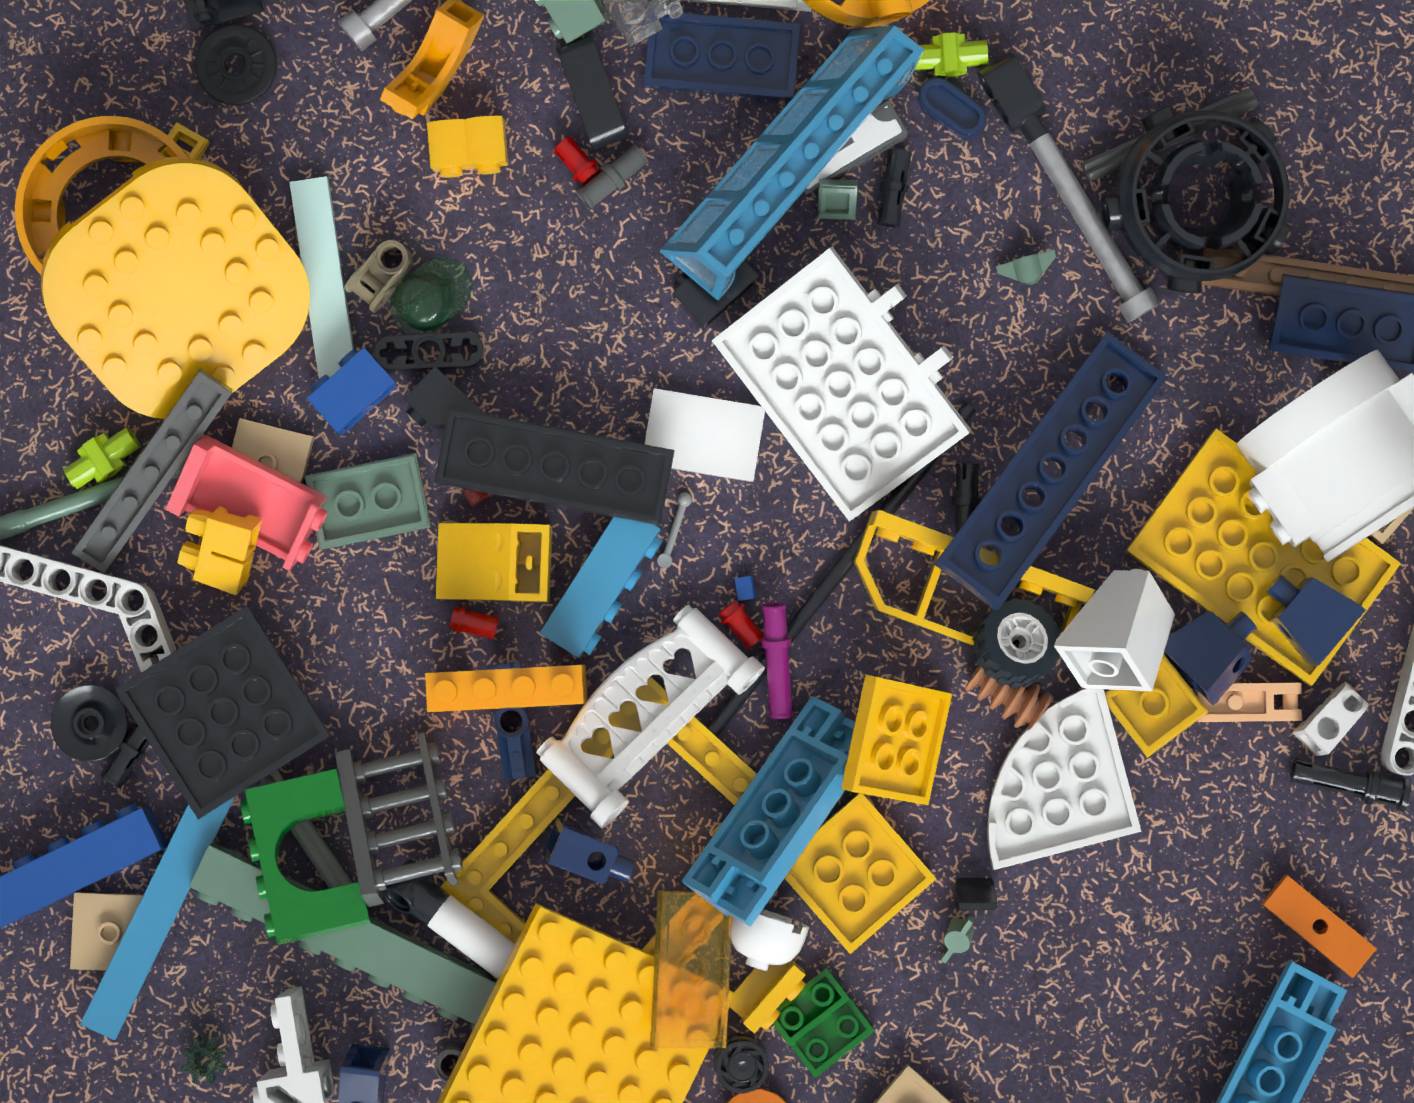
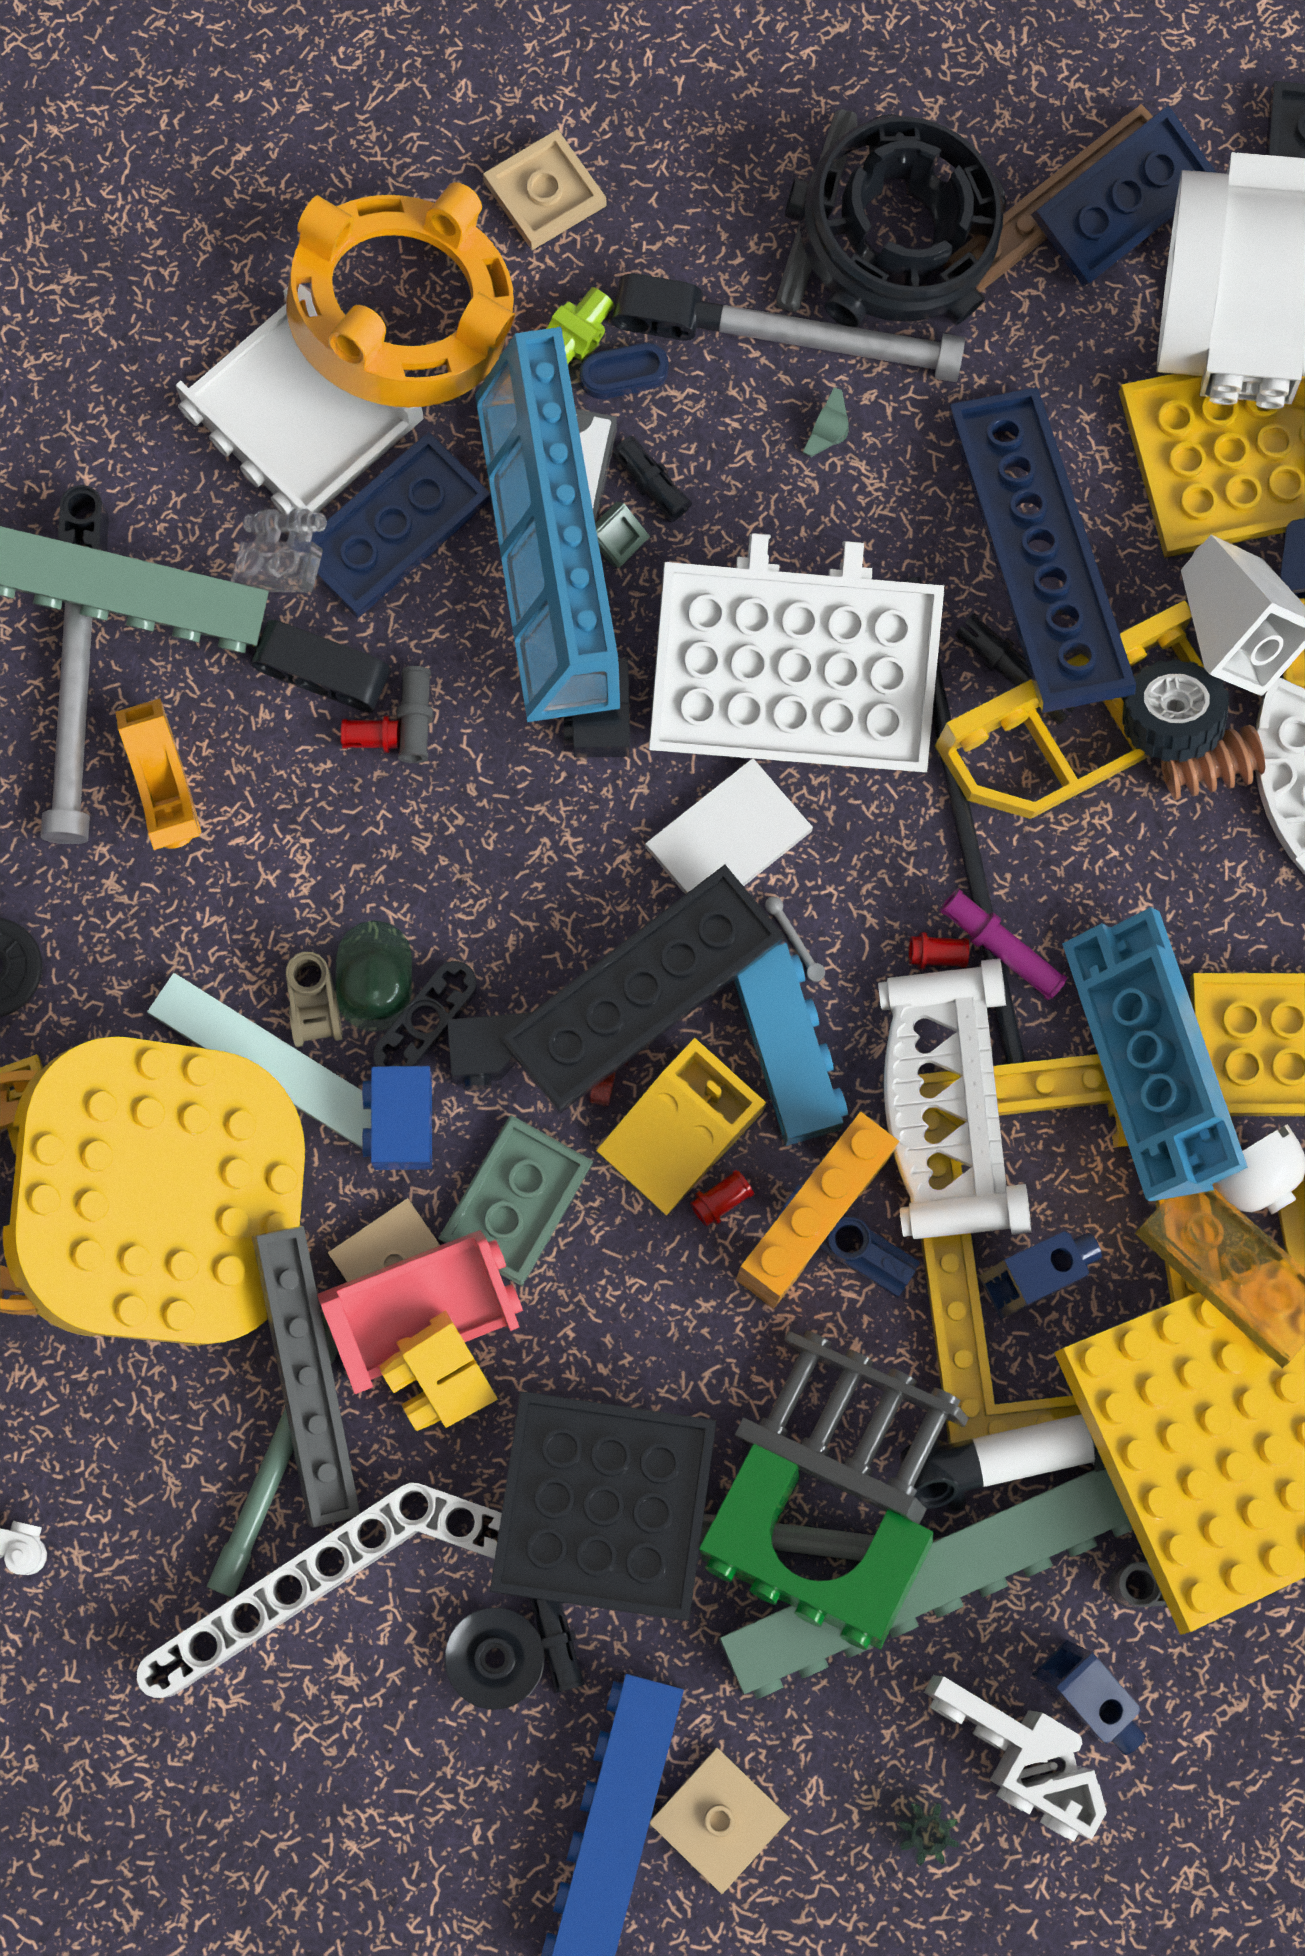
camera: 55 degrees left, 10 degrees down
(102, 458) = (246, 1419): lime axle -> none
(152, 921) = (745, 1765): dark azure tile -> none
(467, 144) = (265, 817): yellow brick -> none
(745, 588) = (905, 921): blue piece -> none
(896, 740) = (1174, 895): yellow plate -> none

